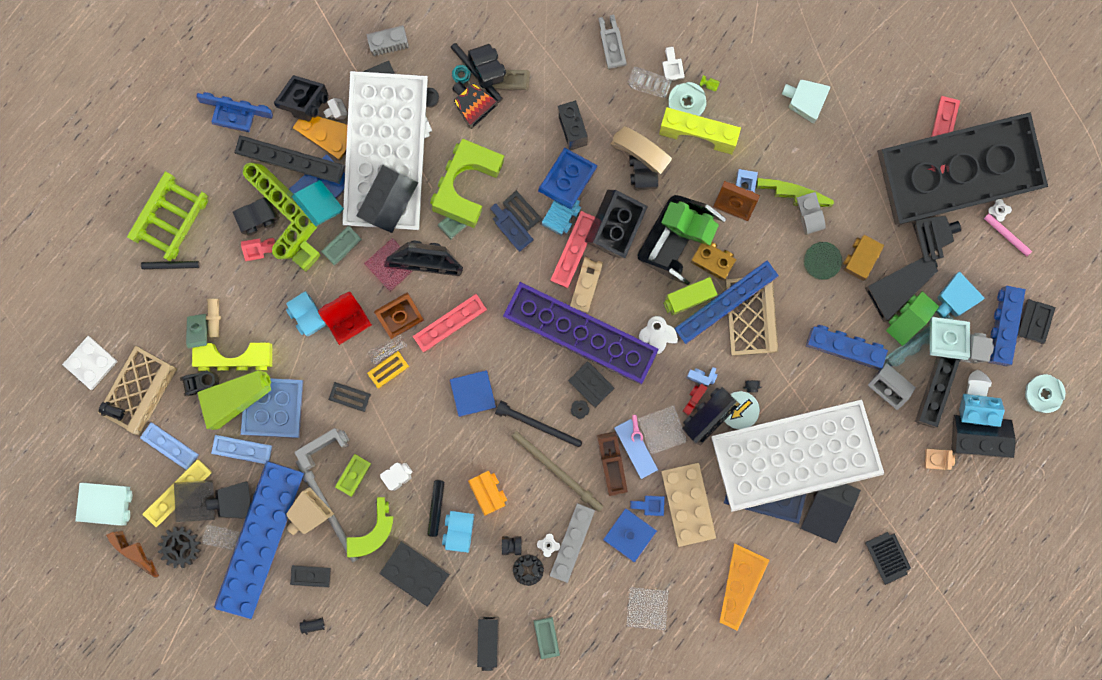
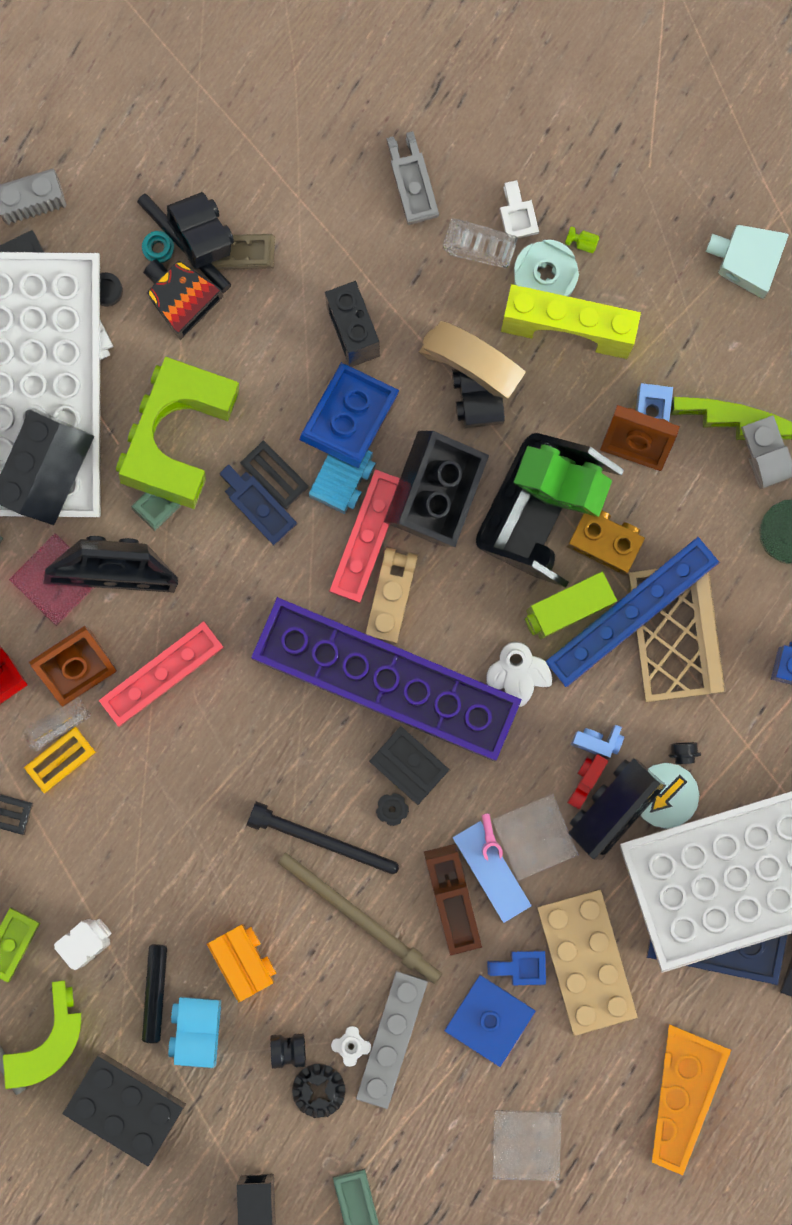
camera: 10 degrees left, 0 degrees up
(472, 393) = (207, 792): blue tile -> none

